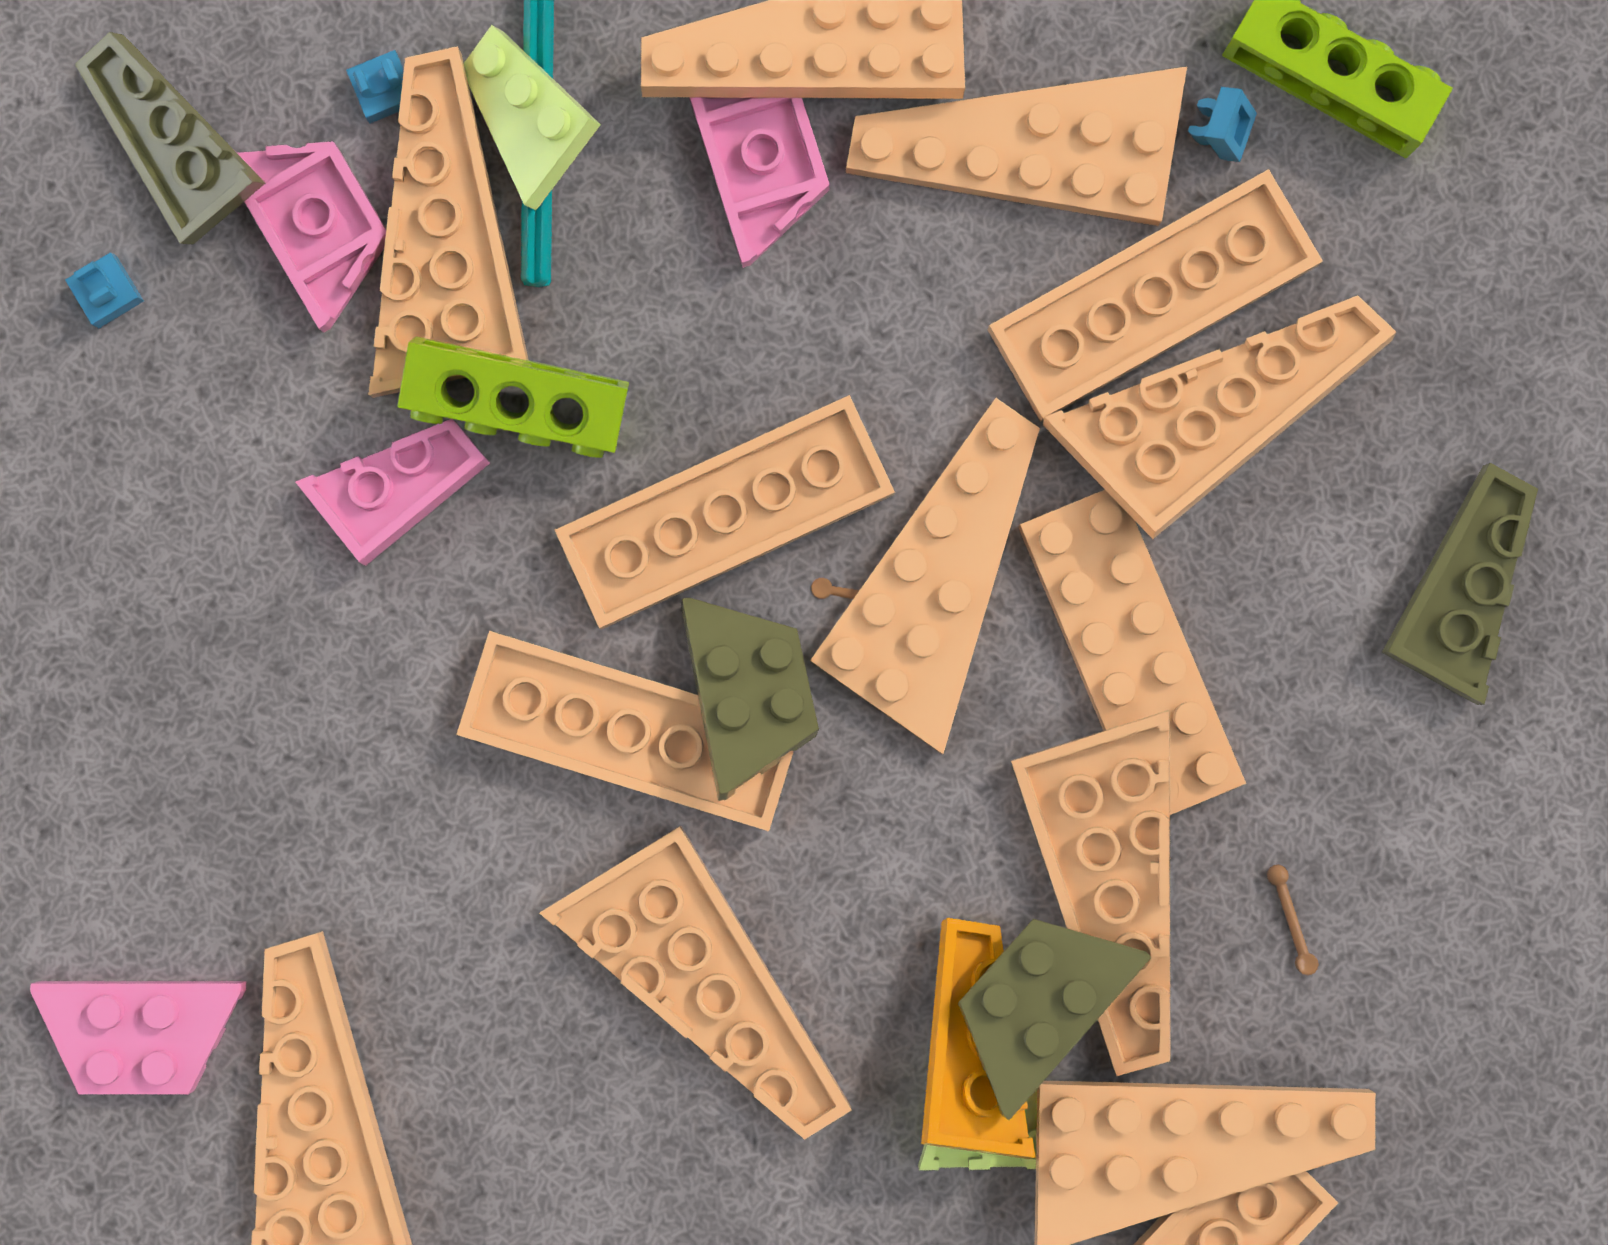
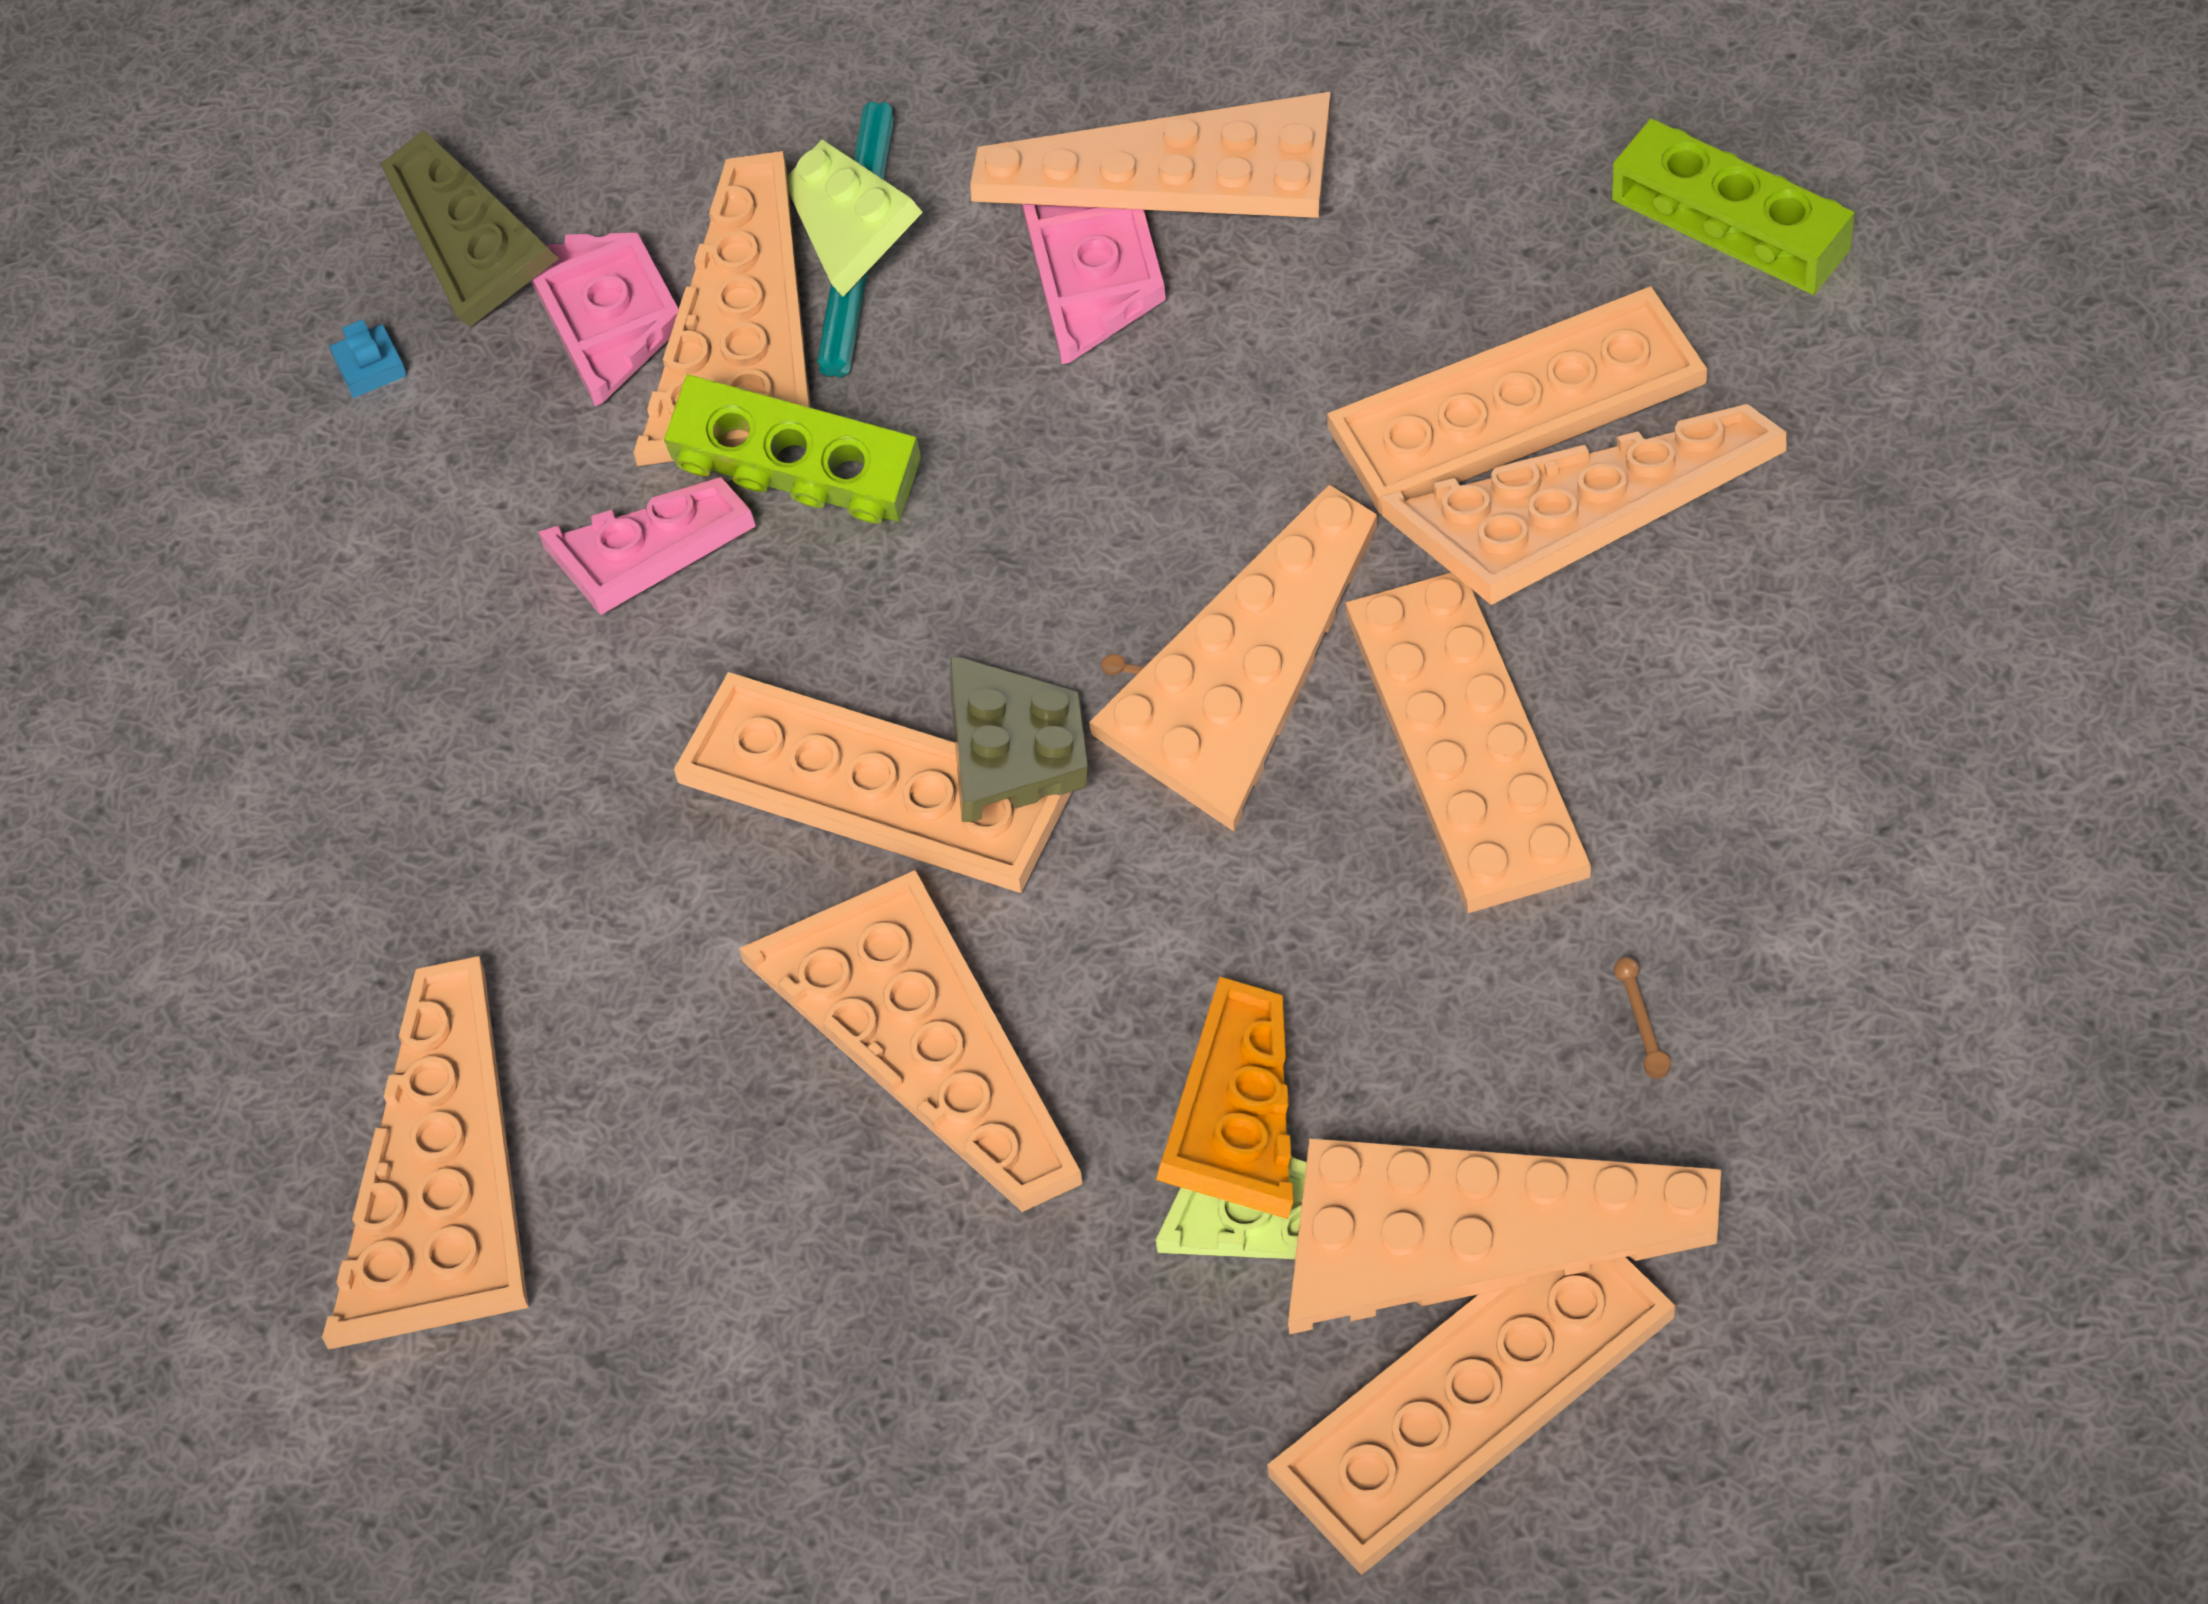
camera: 10 degrees right, 30 degrees down
(136, 1032) = (251, 1059): bright pink wing -> none
(378, 85) = (692, 194): dark azure tile -> none
(724, 512) = (1010, 579): light nougat plate -> none
(1041, 1003) = (1320, 1046): olive wing -> none
(1060, 147) = (1428, 270): light nougat wing -> none
(1107, 849) = (1417, 926): light nougat wing -> none
(1229, 123) = (1608, 249): dark azure tile -> none
(1461, 599) = (1860, 691): olive wing -> none

